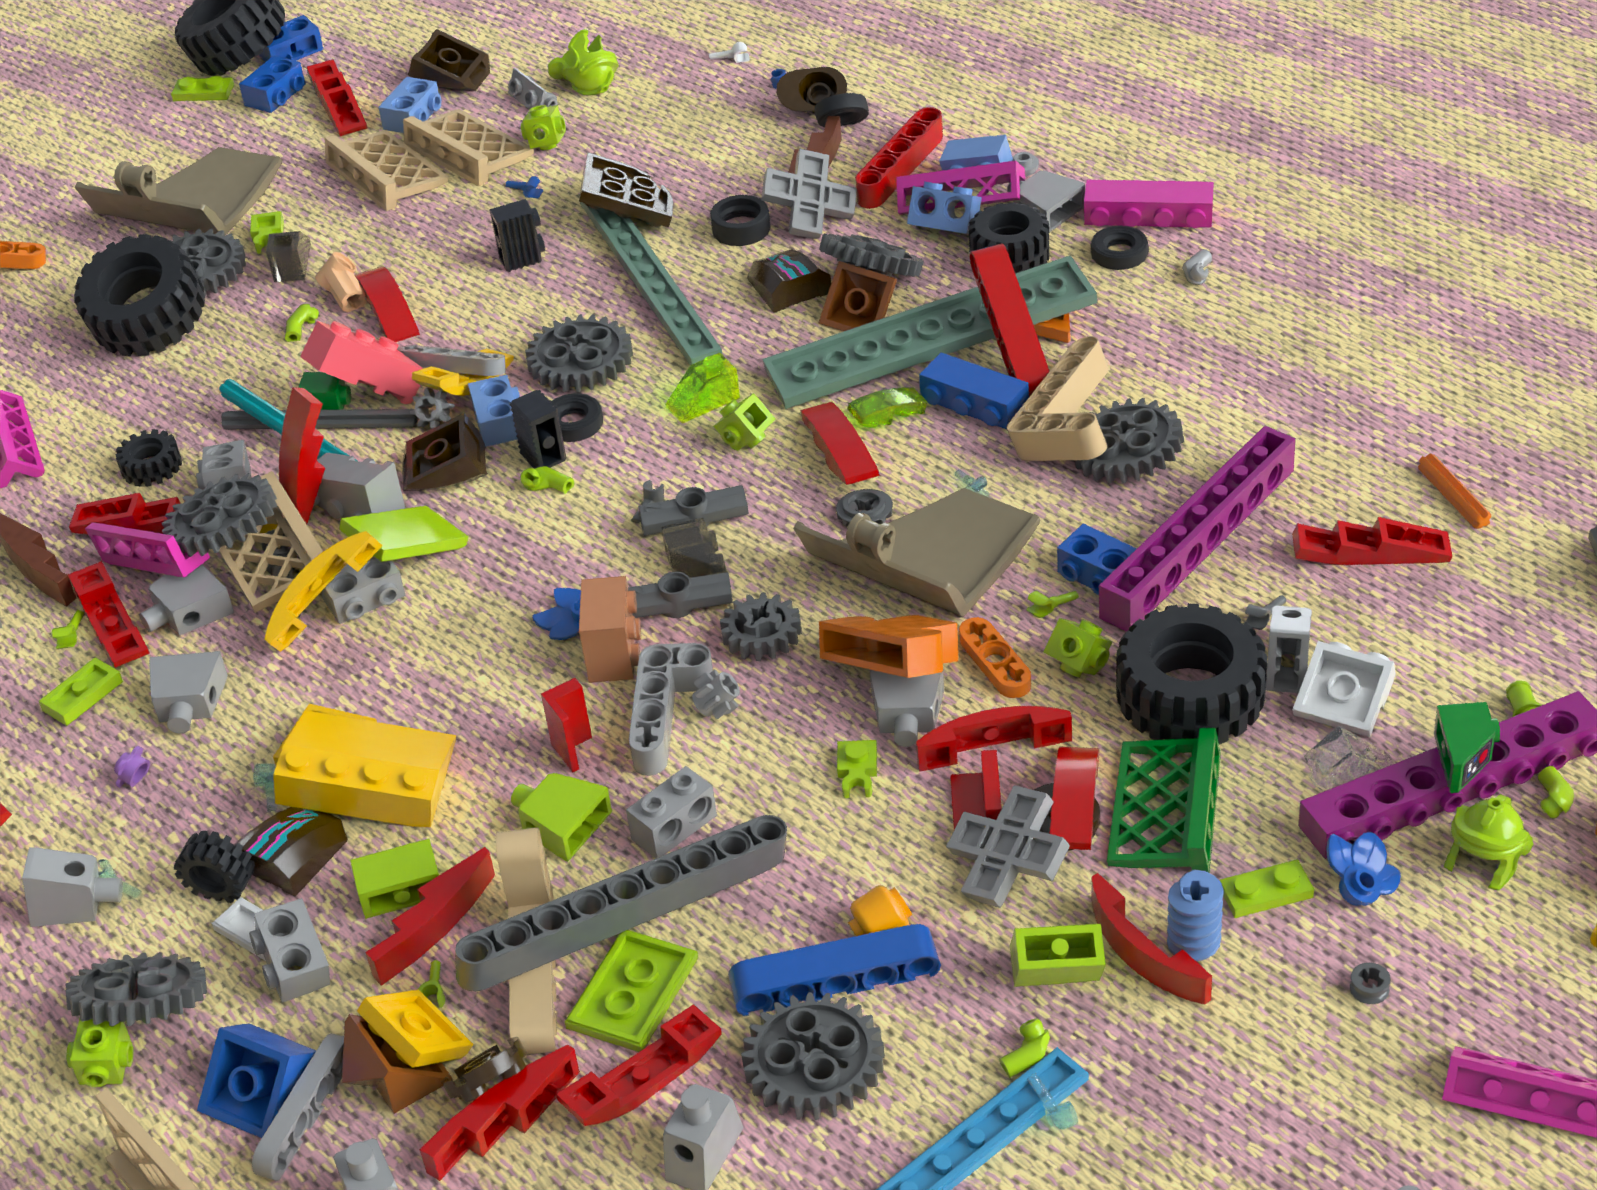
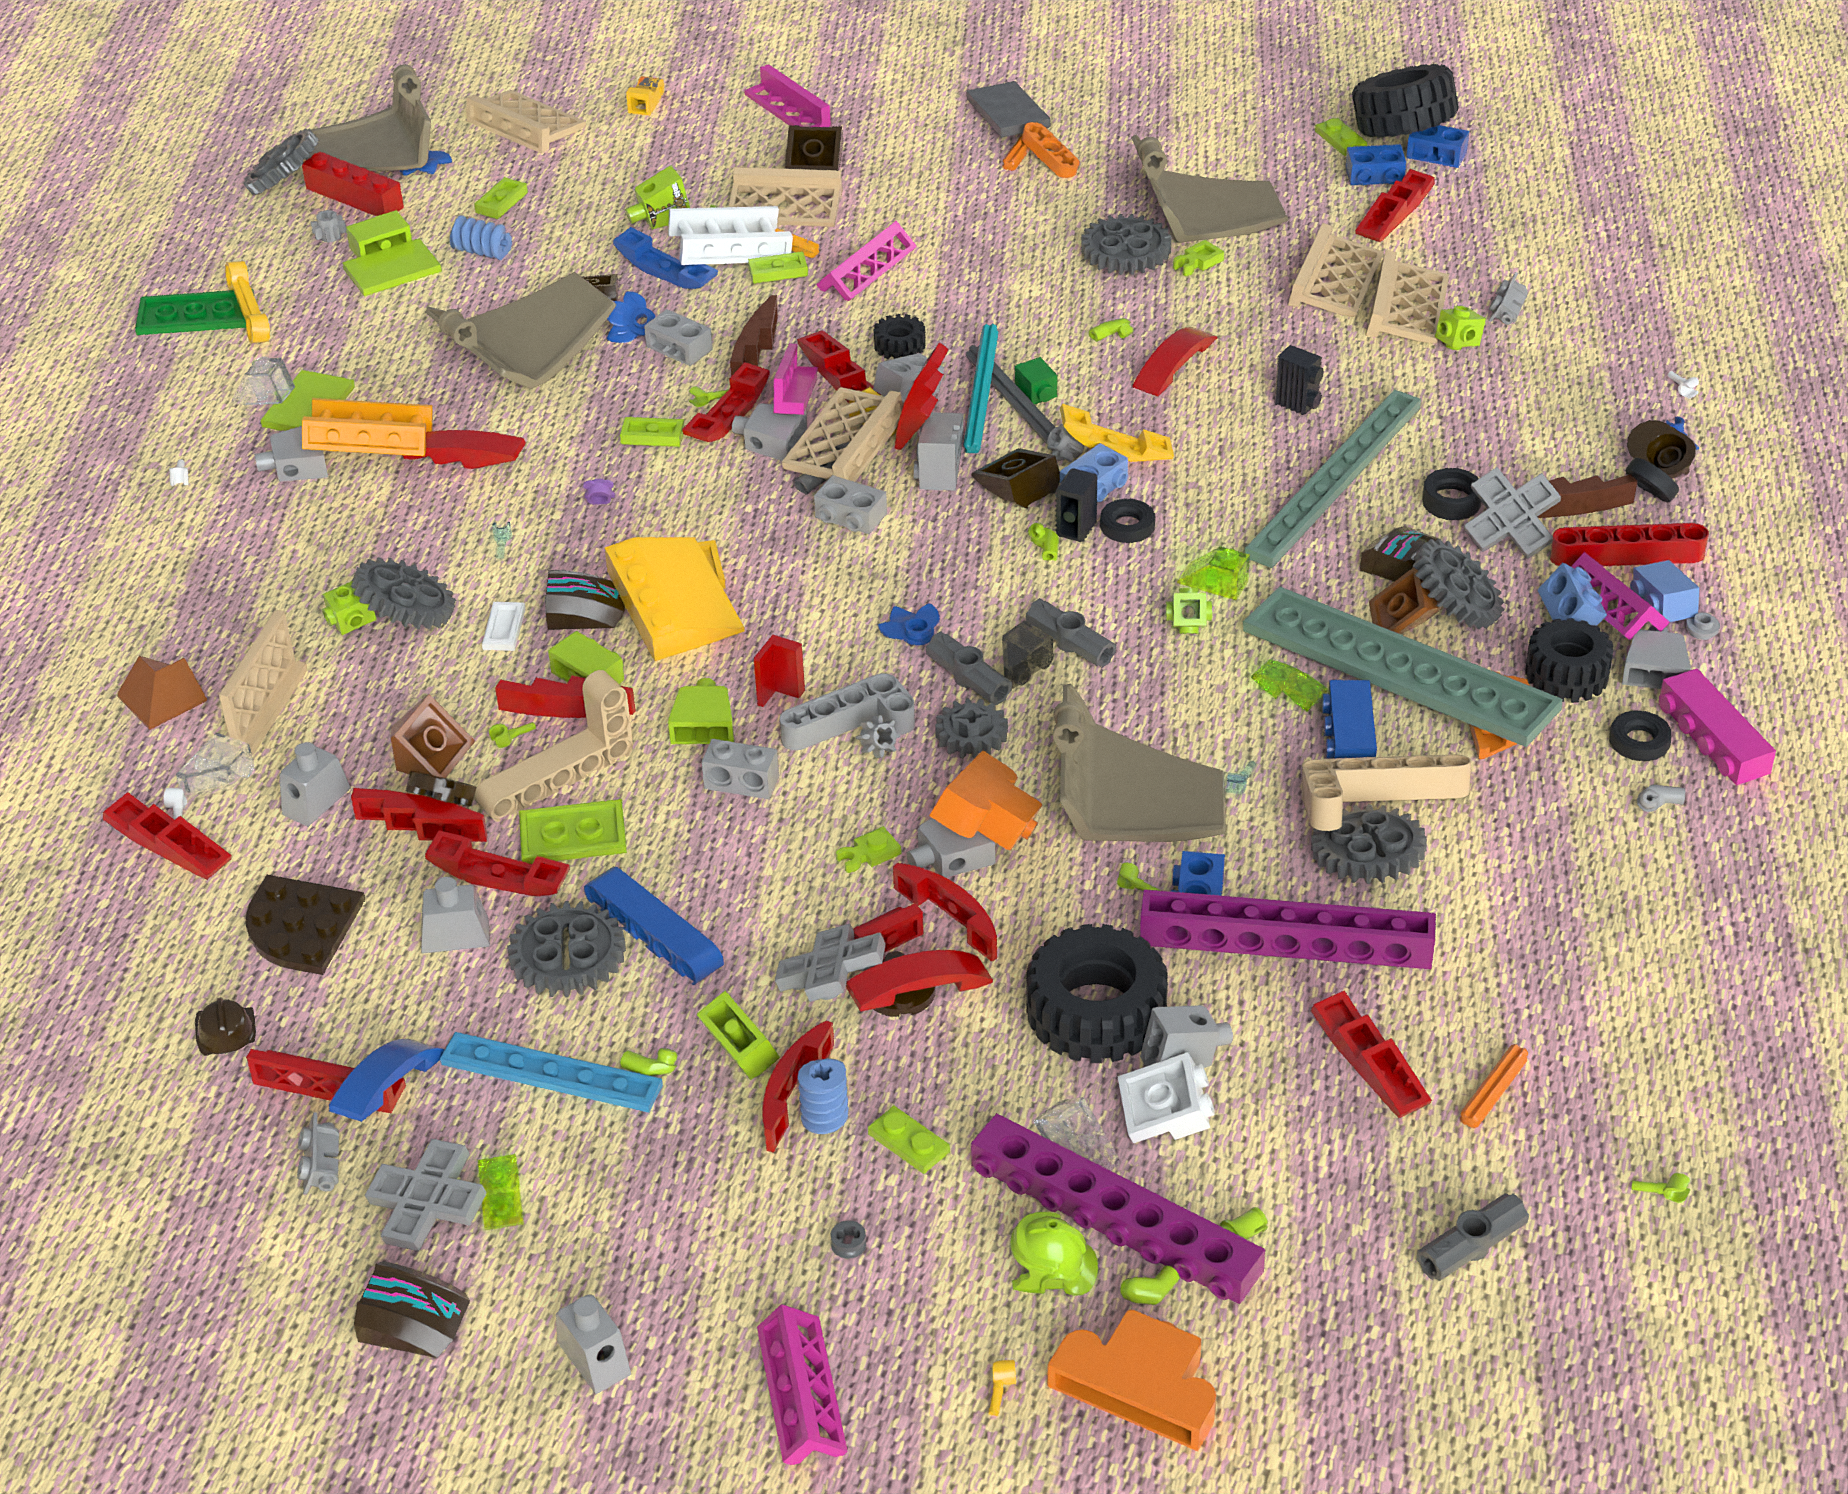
camera: 55 degrees right, 0 degrees up
(65, 887) = (466, 515): light grey torso -> none
(126, 270) = (1047, 234): black tyre -> none
(186, 687) = (687, 476): light grey torso -> none
(214, 866) = (529, 572): black tyre -> none
(220, 514) = (835, 392): dark grey gear -> none
(251, 1076) = (377, 687): blue slope -> none
(288, 255) = (1173, 281): clear smoke slope -> none
(297, 948) = (485, 646): light grey brick -> none
(300, 1109) = (366, 716): light grey beam -> none
(311, 580) = (783, 482): yellow slope -> none
(339, 279) = (1169, 320): light nougat piece -> none
(361, 359) = (1066, 371): coral wedge -> none
(406, 532) = (914, 495): lime tile -> none
(409, 98) = (1422, 245): medium blue brick -> none
(414, 1028) = (451, 735): yellow plate -> none
(450, 63) = (1494, 237): dark brown slope -> none
(456, 360) = (1127, 423): light grey beam -> none
(529, 188) = (1384, 363): blue hand -> none
(579, 353) = (1201, 486): dark grey gear -> none
(586, 69) = (1559, 315): lime helmet -> none
(609, 629) = (890, 641): nougat brick -> none
(618, 903) = (629, 780): dark grey beam -> none
(625, 191) = (1413, 408): dark brown plate -> none
(650, 496) = (1077, 603): dark grey hand -> none
(840, 443) = (1214, 677): red slope -> none
(864, 500) = (1145, 721): dark grey gear -> none
(878, 911) = (720, 923): light orange head -> none
(995, 645) = (1045, 864): orange beam -> none
(1009, 315) = (1437, 694): red beam -> none
(1059, 1115) = (596, 1104): clear light blue hand -> none
(1078, 647) = (1082, 907): lime brick -> none
(1199, 810) = (961, 1058): green fence -> none
(1259, 616) = (1221, 1014): dark grey hand -> none
(1362, 868) = (969, 1183): blue plate -> none
(1464, 741) = (1122, 1185): green slope -> none

